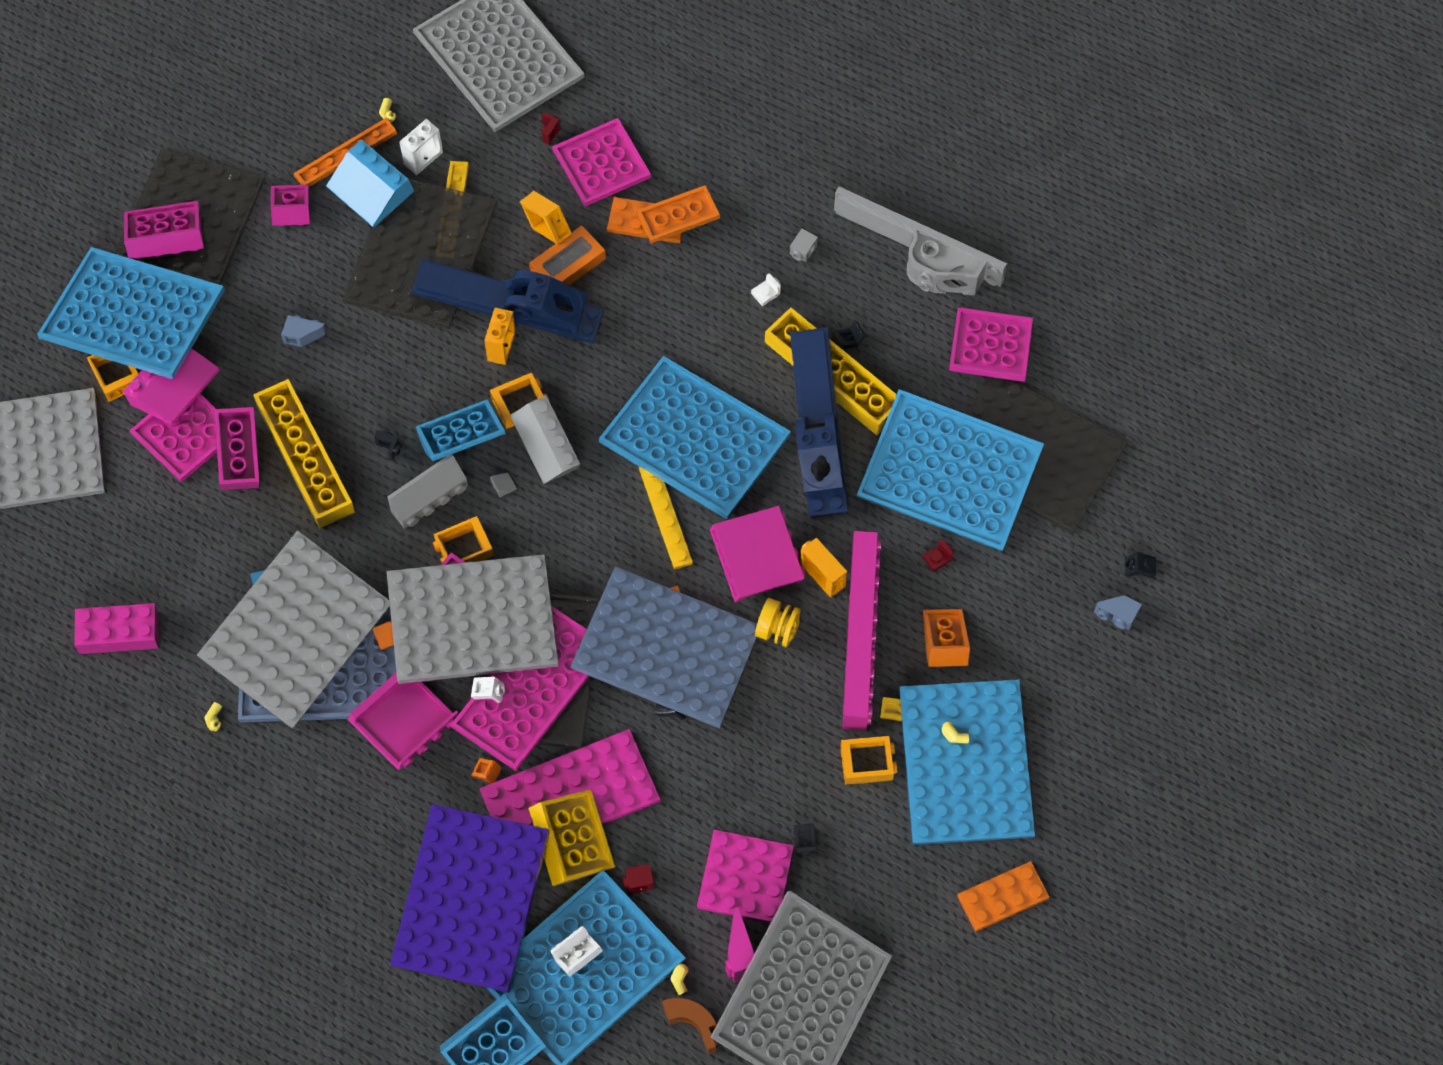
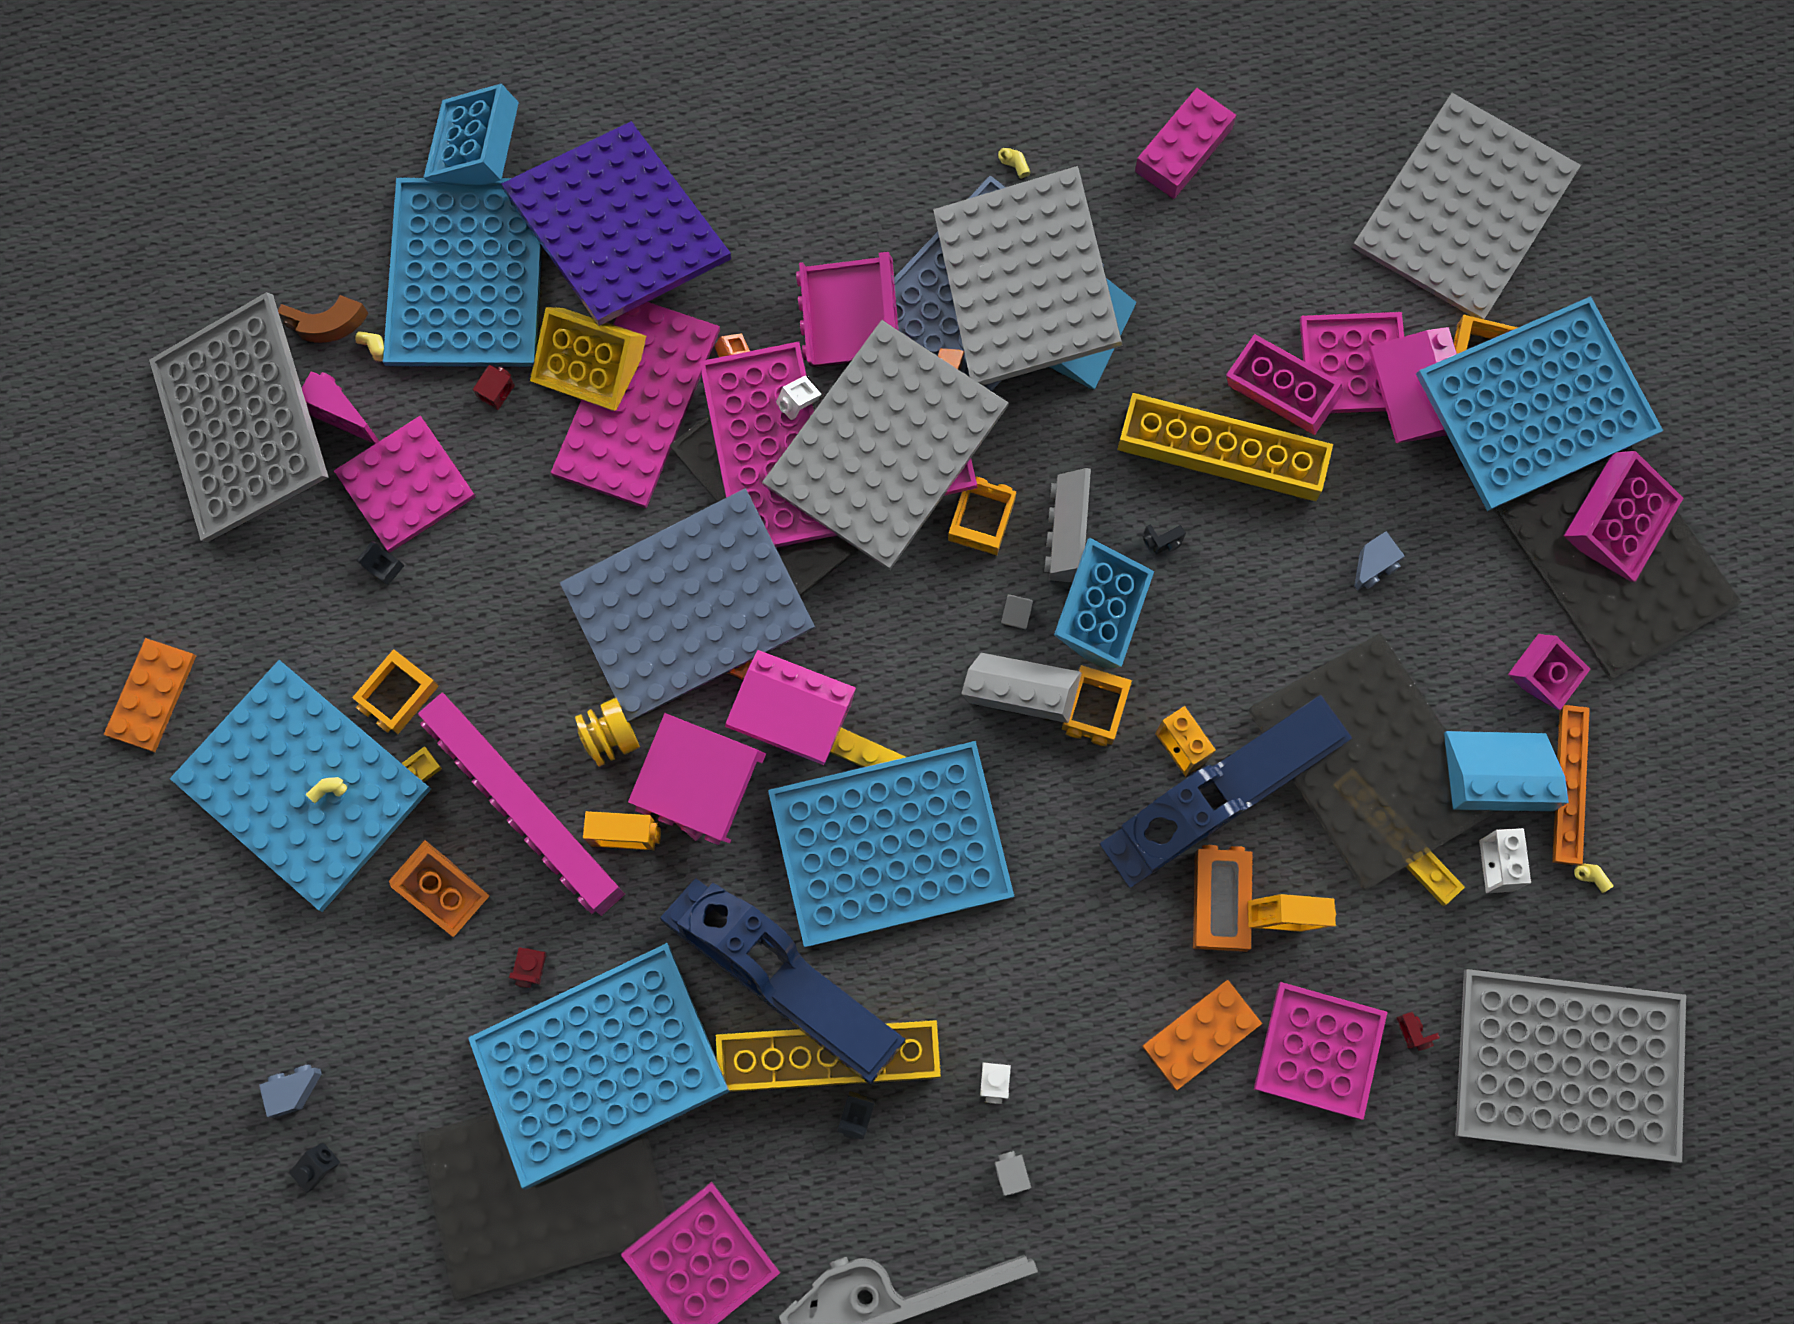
camera: 135 degrees right, 10 degrees up
(575, 951) = (476, 269): white bracket -> none
(672, 541) = (790, 707): none -> dark pink slope
(678, 214) = (1171, 1066): orange plate -> none

